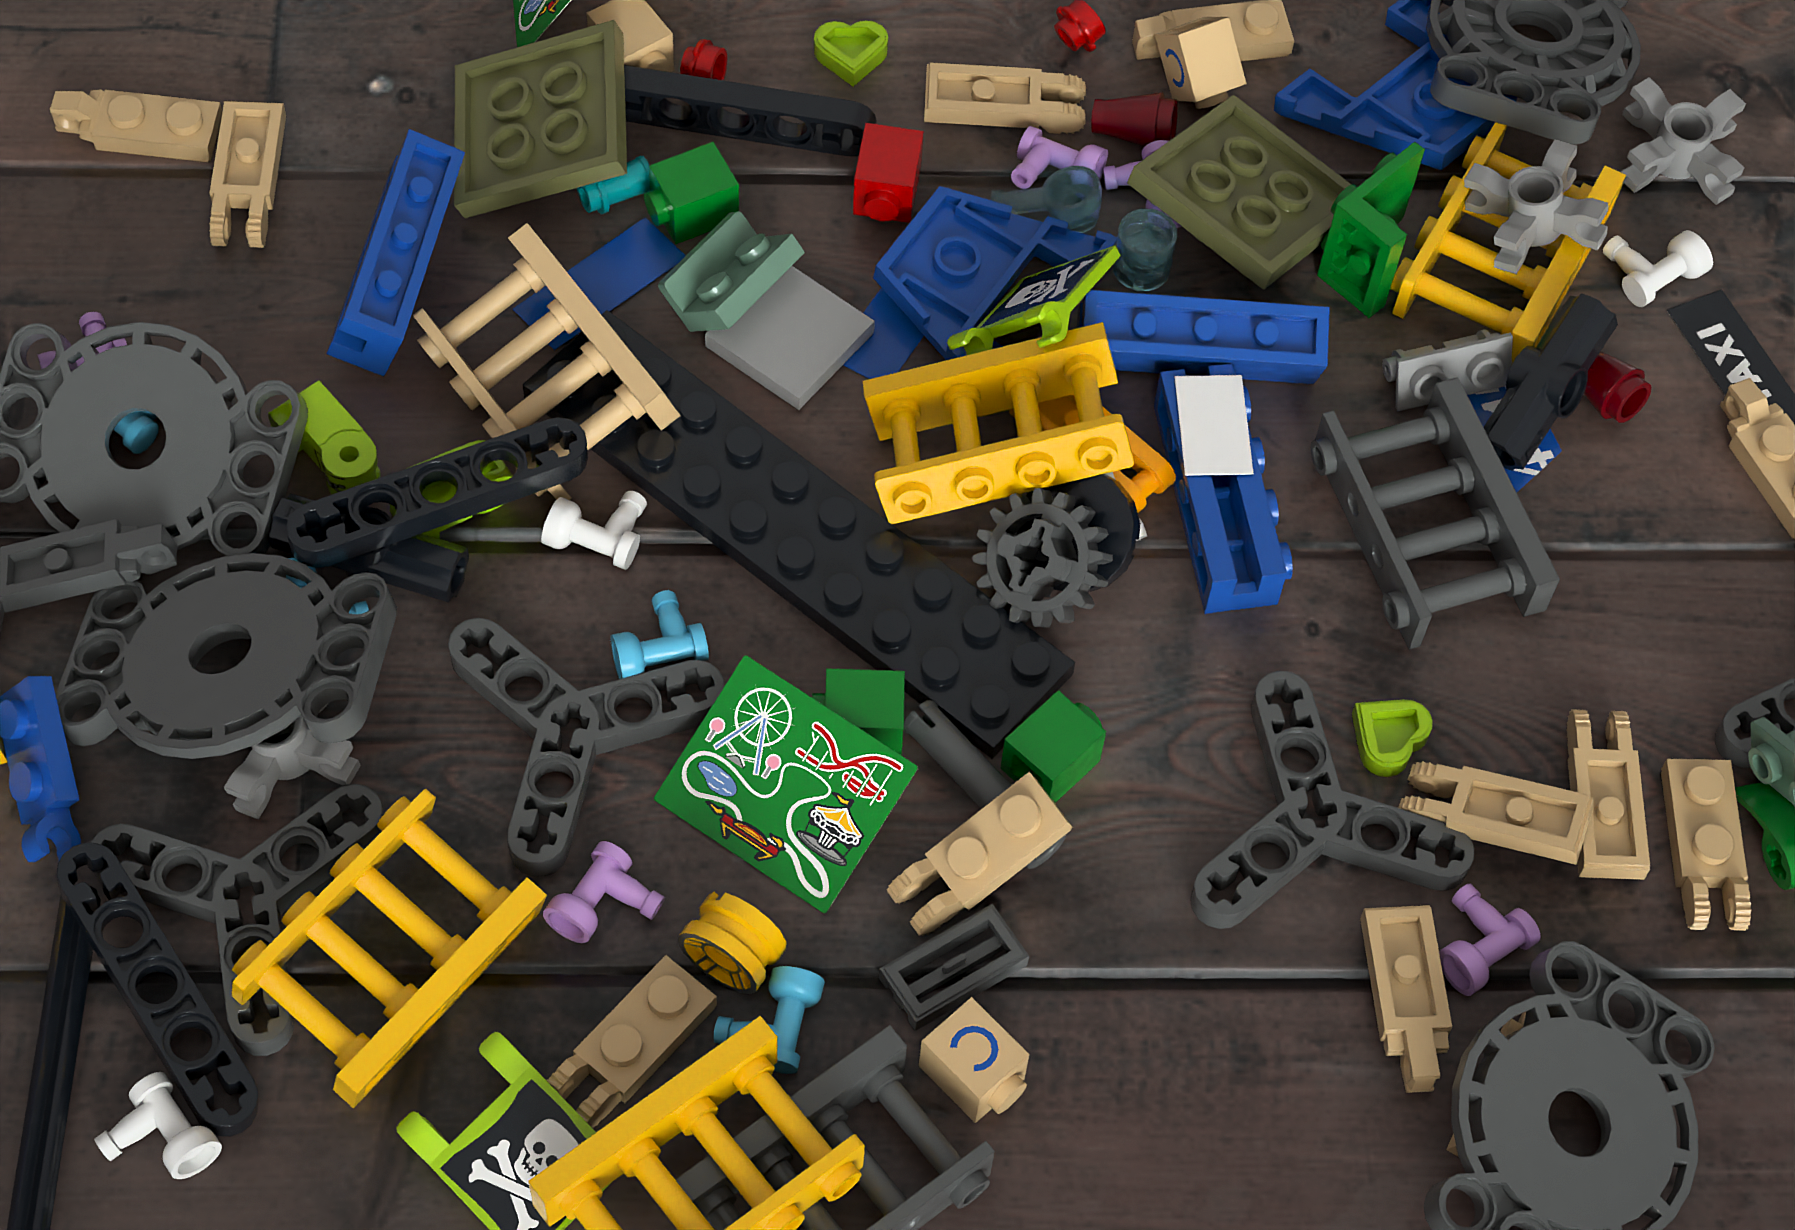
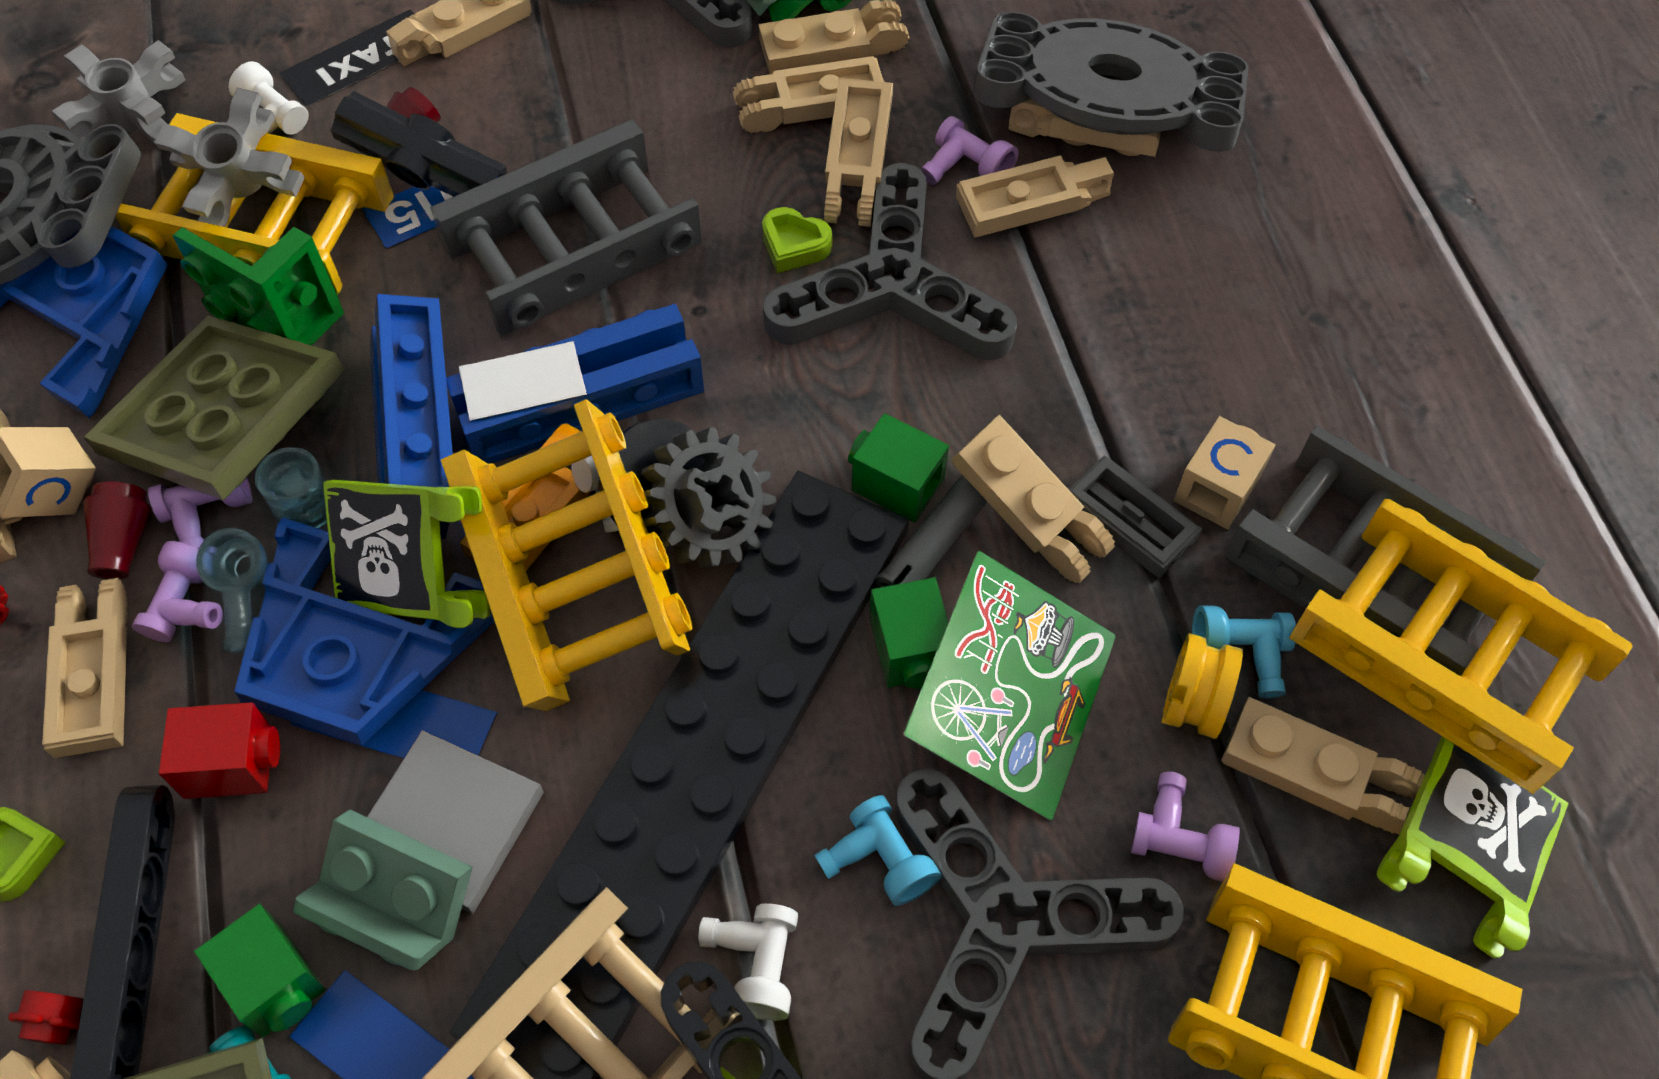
camera: 100 degrees left, 0 degrees up
(1477, 361) = (415, 249): light grey hinge -> none

